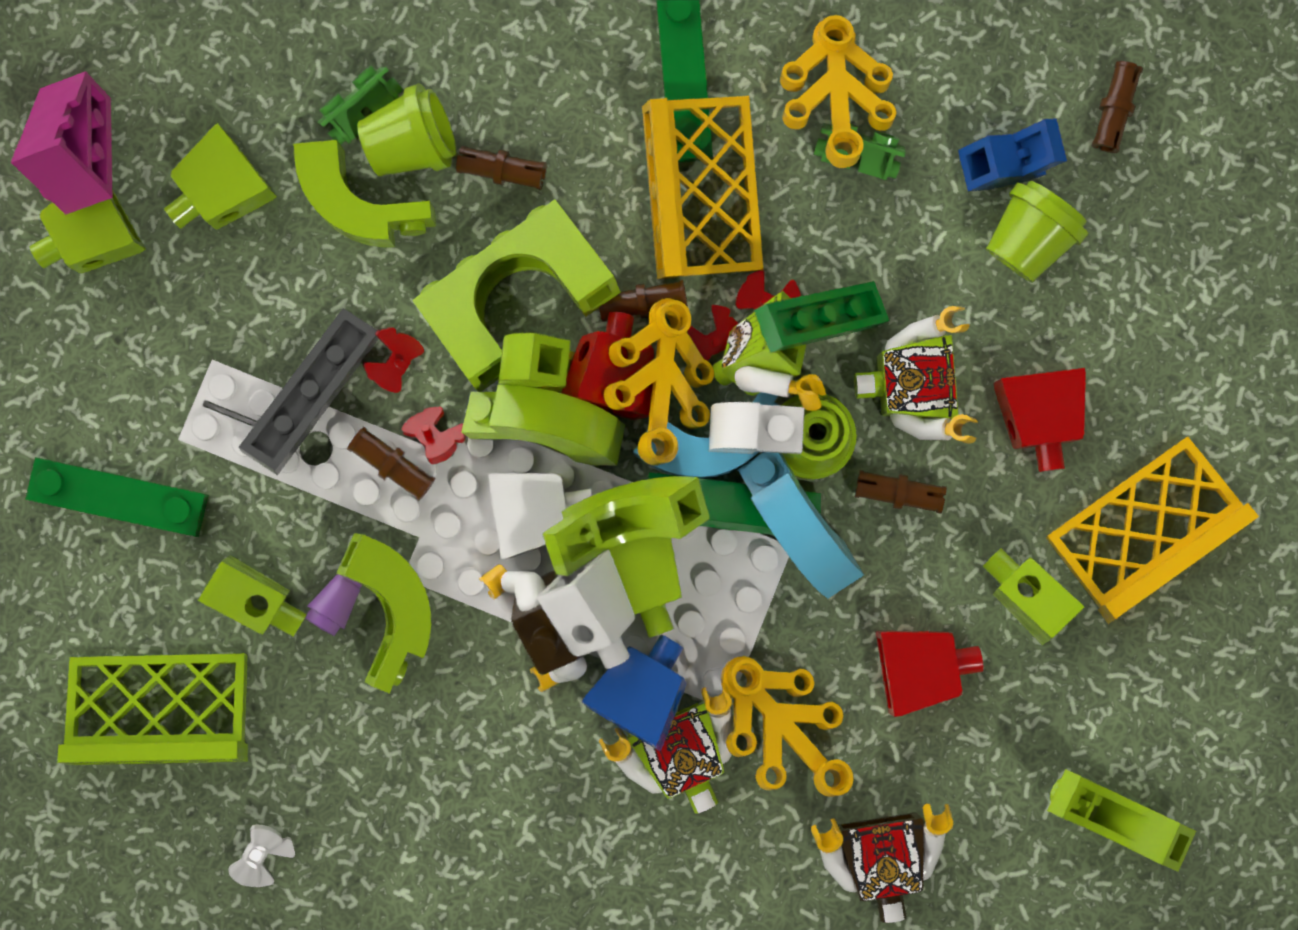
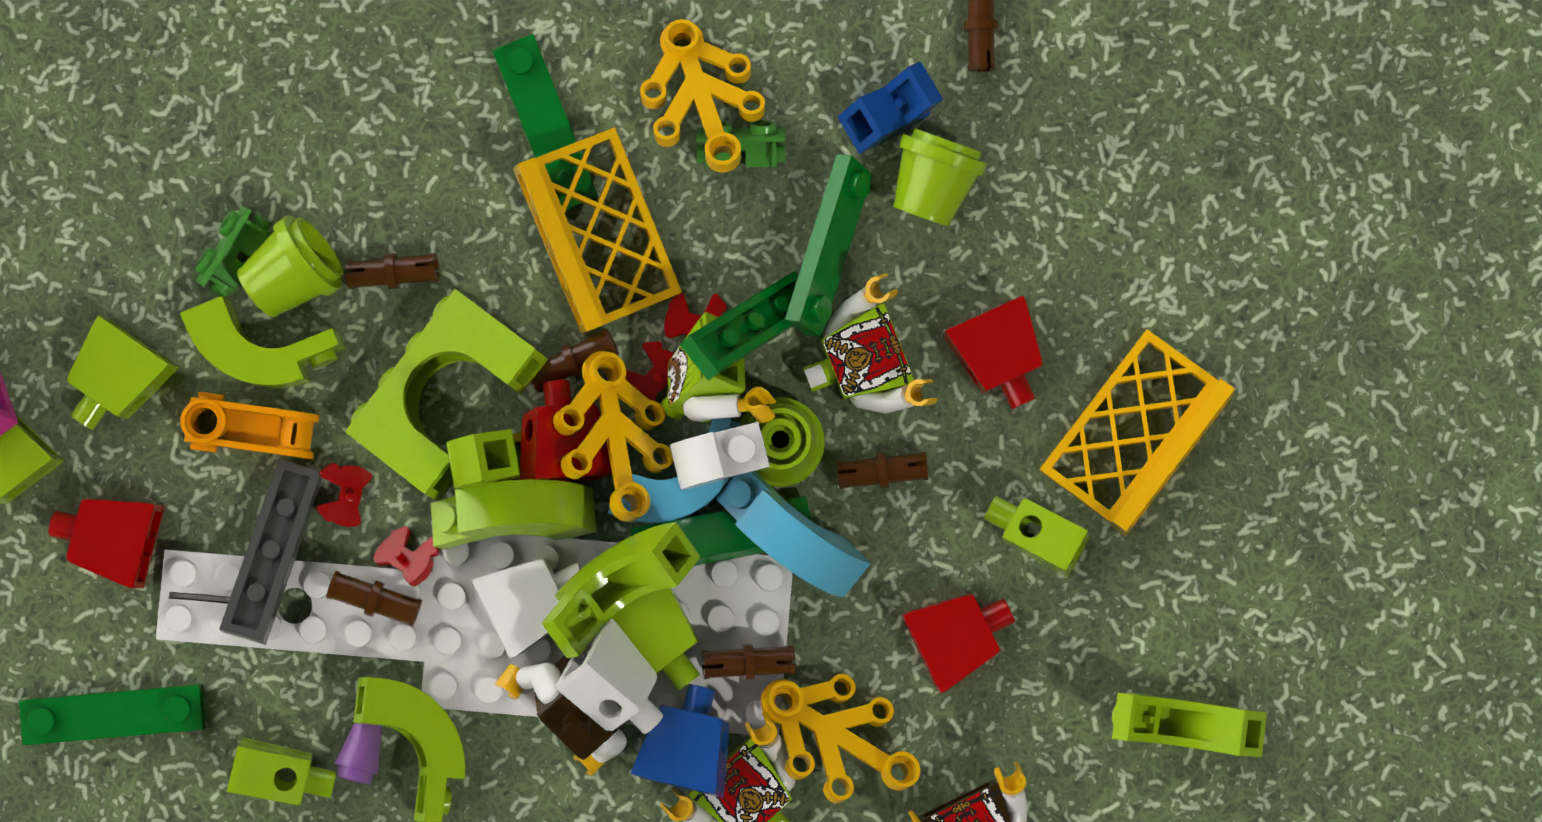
camera: 20 degrees left, 0 degrees up
(166, 333) = (111, 538): none -> red torso
(324, 270) = (248, 427): none -> light orange piece
(722, 631) = (748, 662): none -> reddish brown pin
(915, 267) = (829, 246): none -> green plate

